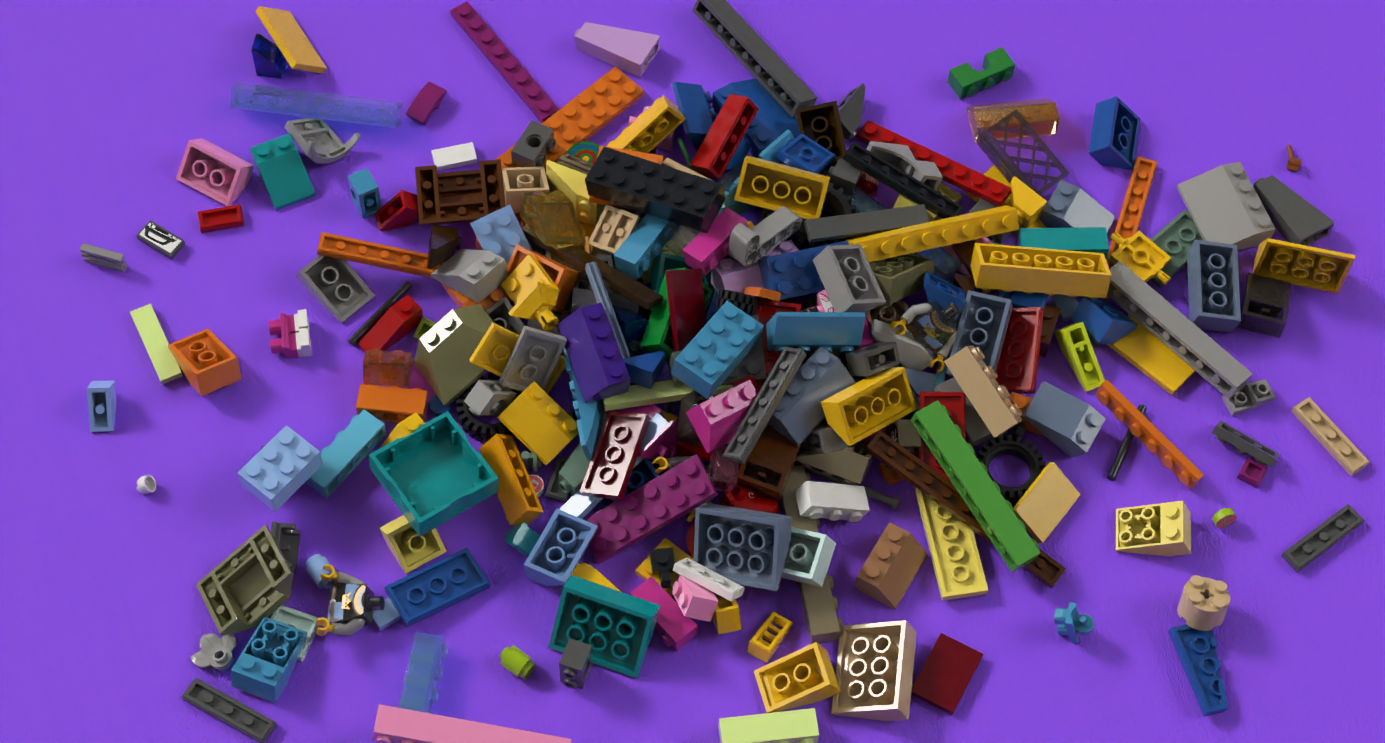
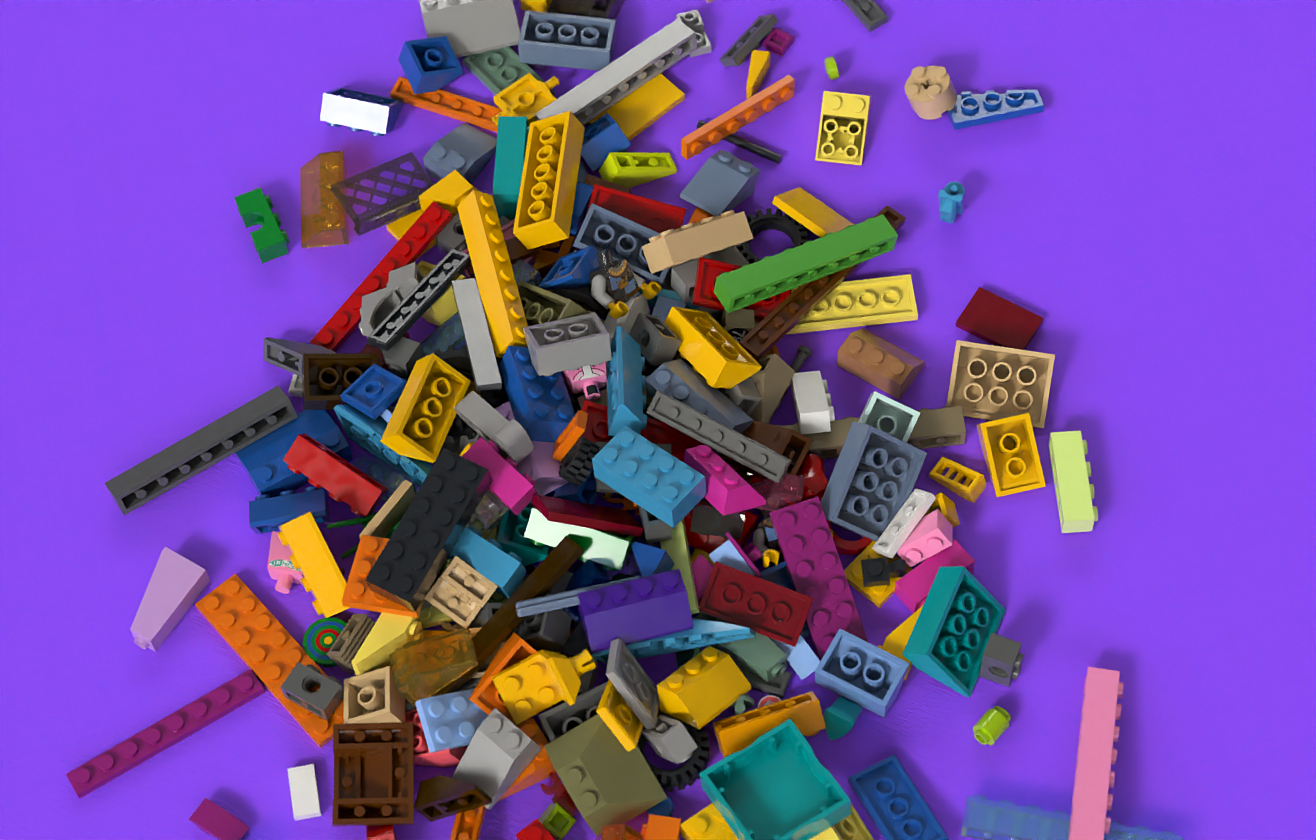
camera: 80 degrees left, 0 degrees up
(1167, 177) = (429, 63): none -> blue slope
(1207, 451) = (758, 68): none -> yellow slope

